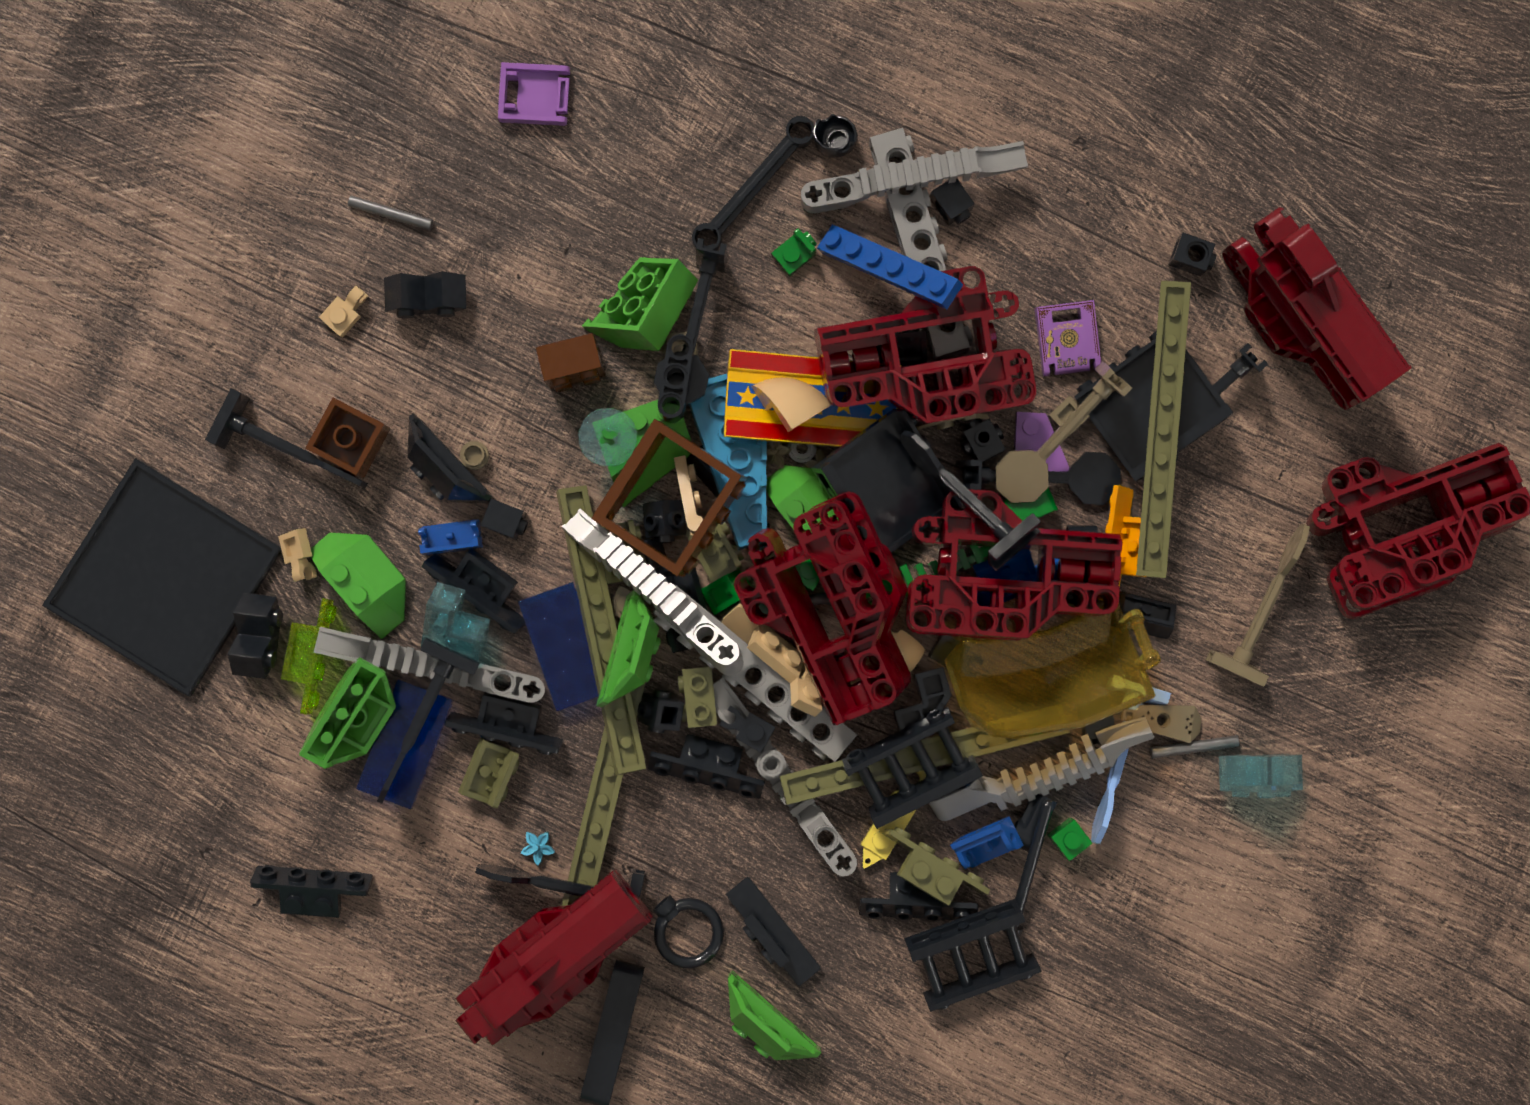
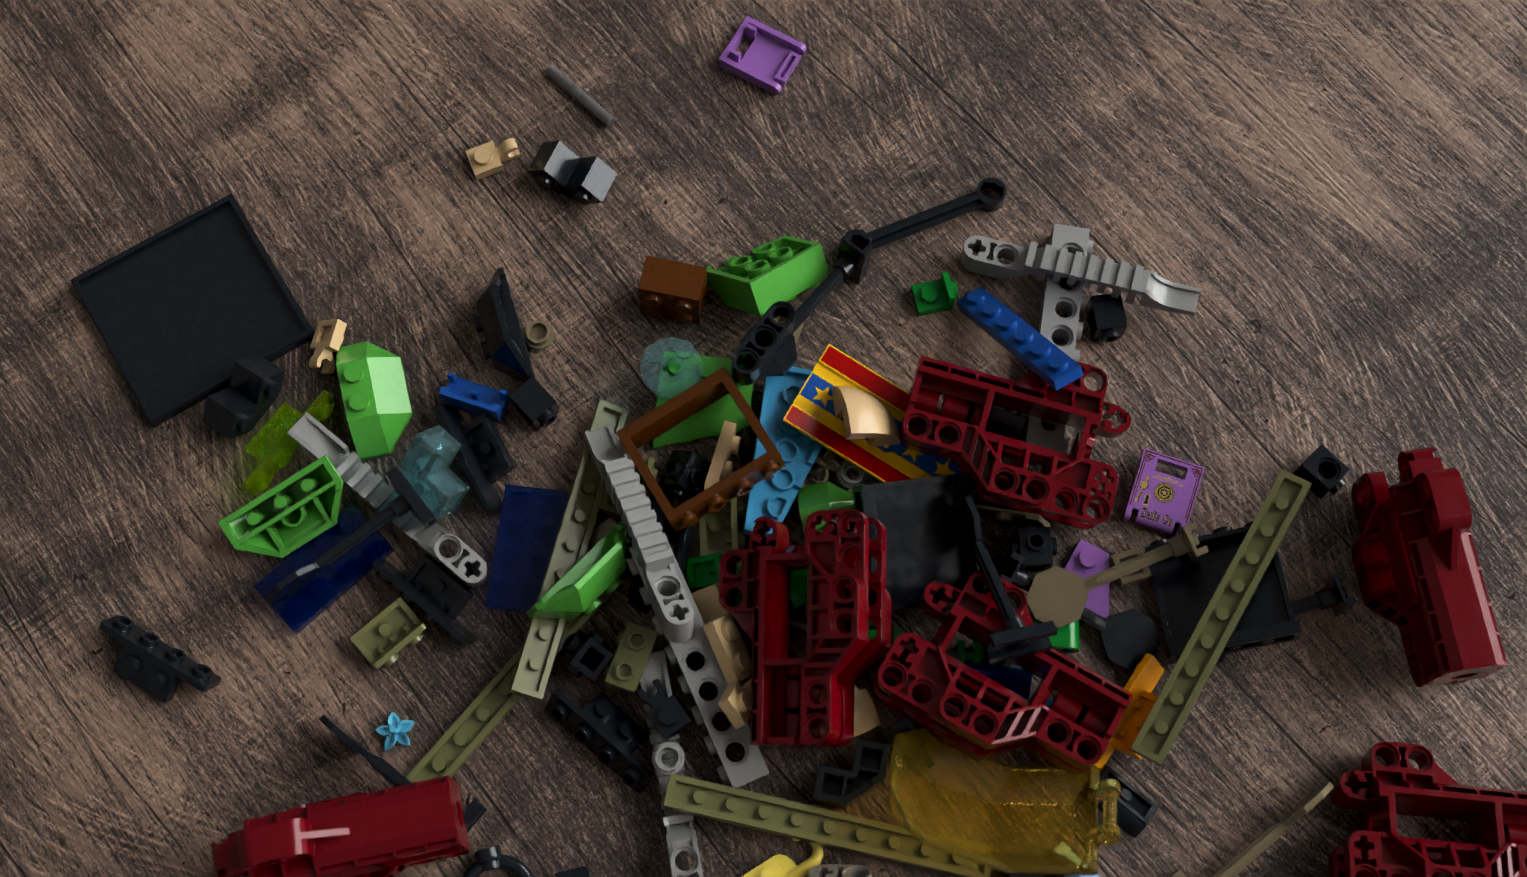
camera: 20 degrees right, 15 degrees down
(231, 420) = (337, 199): black piece -> none
(348, 438) = (431, 262): reddish brown brick -> none
(835, 136) = (1021, 210): black hair -> none
(923, 792) = (793, 860): black fence -> none

